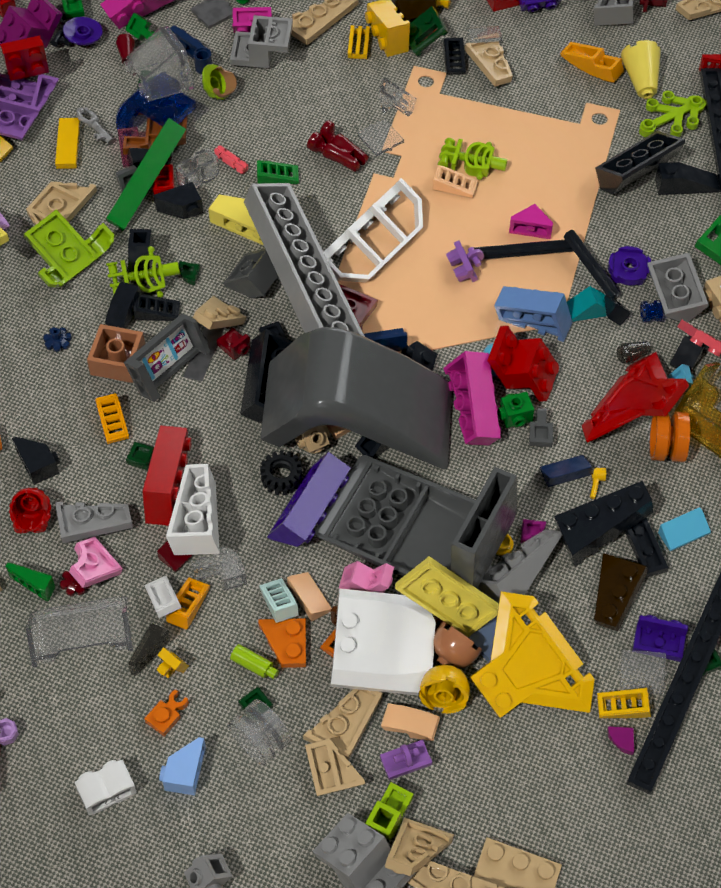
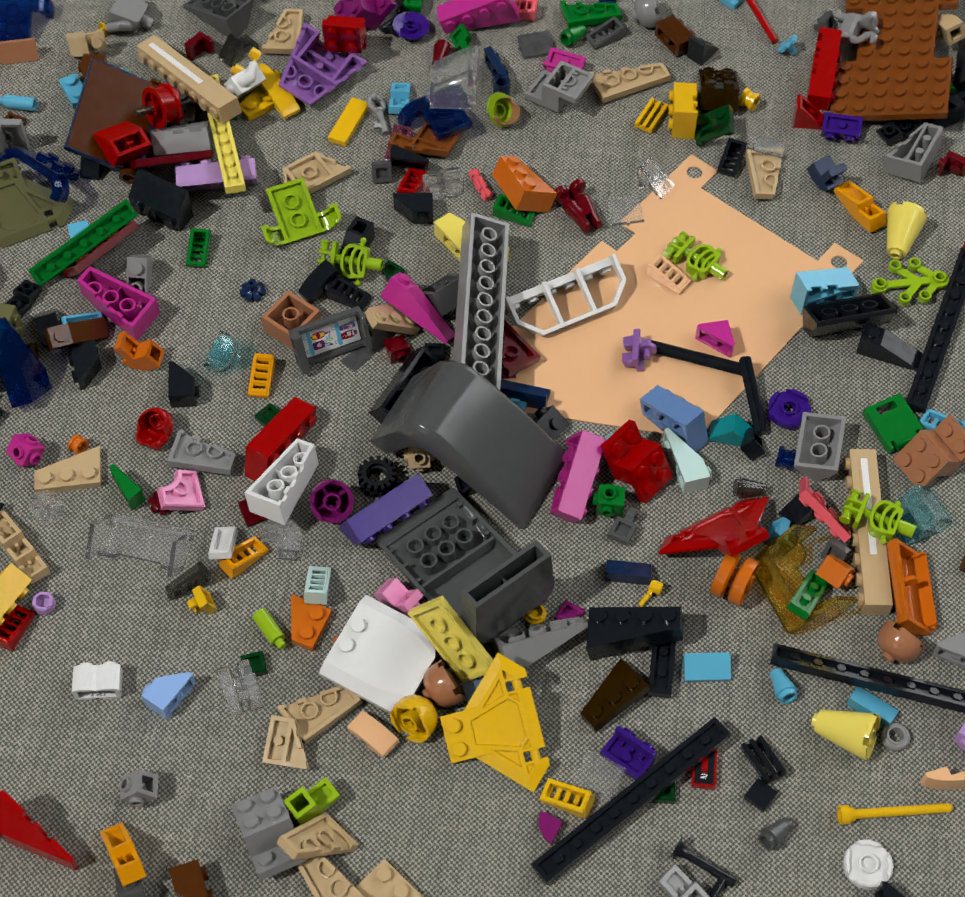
camera: 25 degrees right, 0 degrees up
(62, 410) = (223, 353): none -> clear light blue cylinder
(106, 103) = (399, 96): none -> medium azure slope
(145, 174) = (396, 172): green tile -> none
(165, 715) = (175, 643): orange plate -> none
(227, 291) = (412, 302): none -> dark pink wedge
(252, 512) = (331, 501): none -> magenta cylinder
(275, 145) = (522, 185): none -> orange wedge
(308, 595) = (345, 590): light nougat slope -> none
(405, 759) = (350, 763): medium lavender hips -> none
(548, 43) = (826, 174): none -> dark blue brick
(568, 350) = (687, 464): none -> light aqua slope
(601, 145) = (823, 286): none -> medium azure wedge

